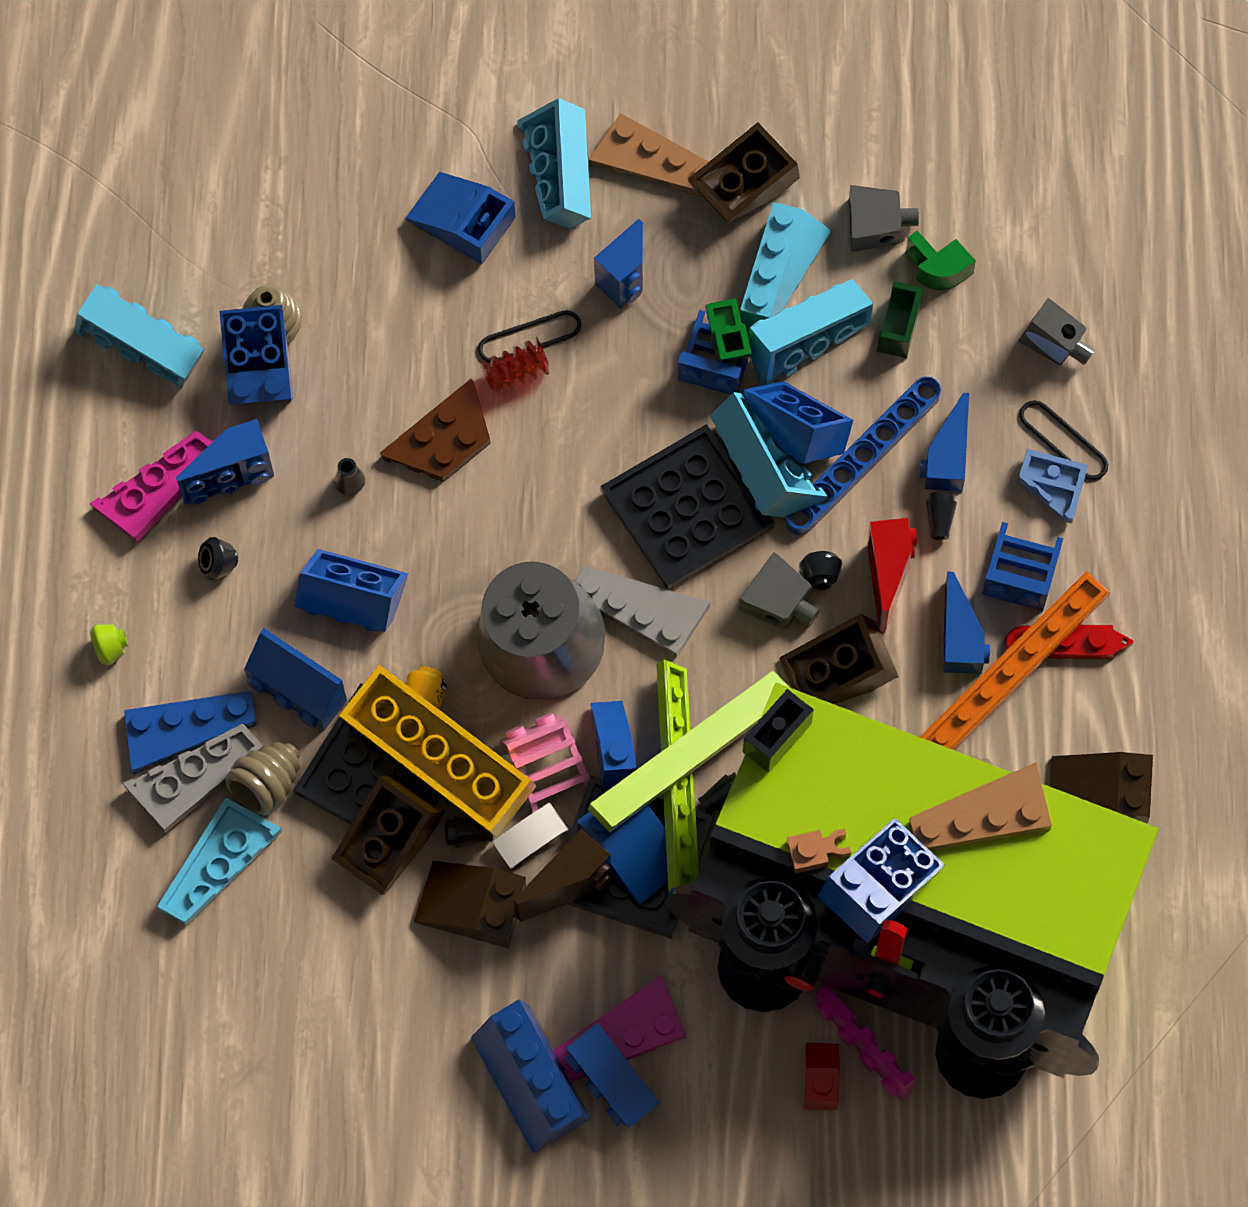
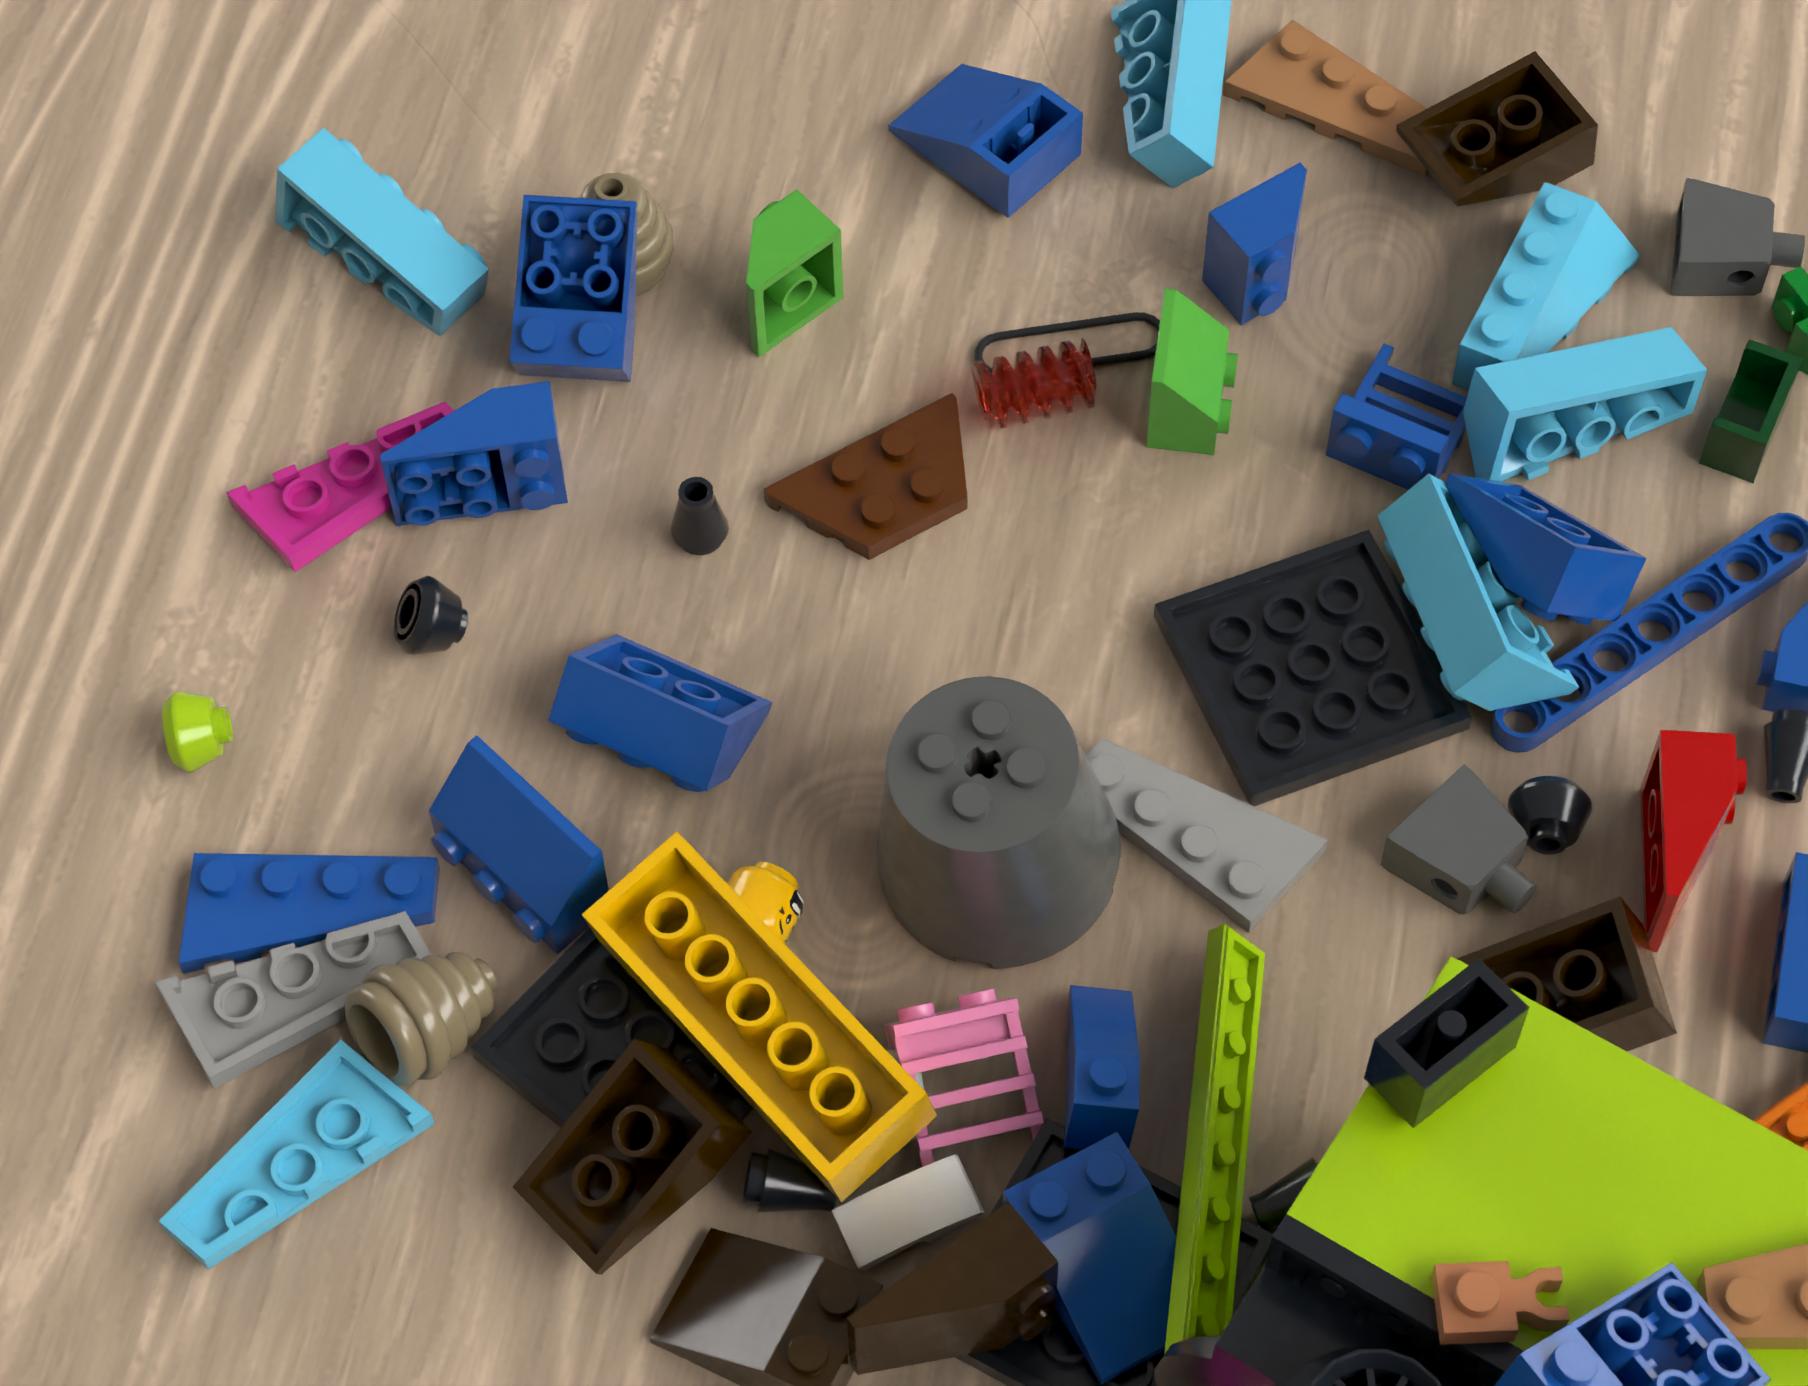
camera: 10 degrees right, 10 degrees down
(371, 322) = (791, 269): none -> bright green slope
(597, 351) = (1189, 379): none -> bright green slope
(684, 755) = (1215, 1112): tile -> none
(727, 331) = (1432, 376): green brick -> none

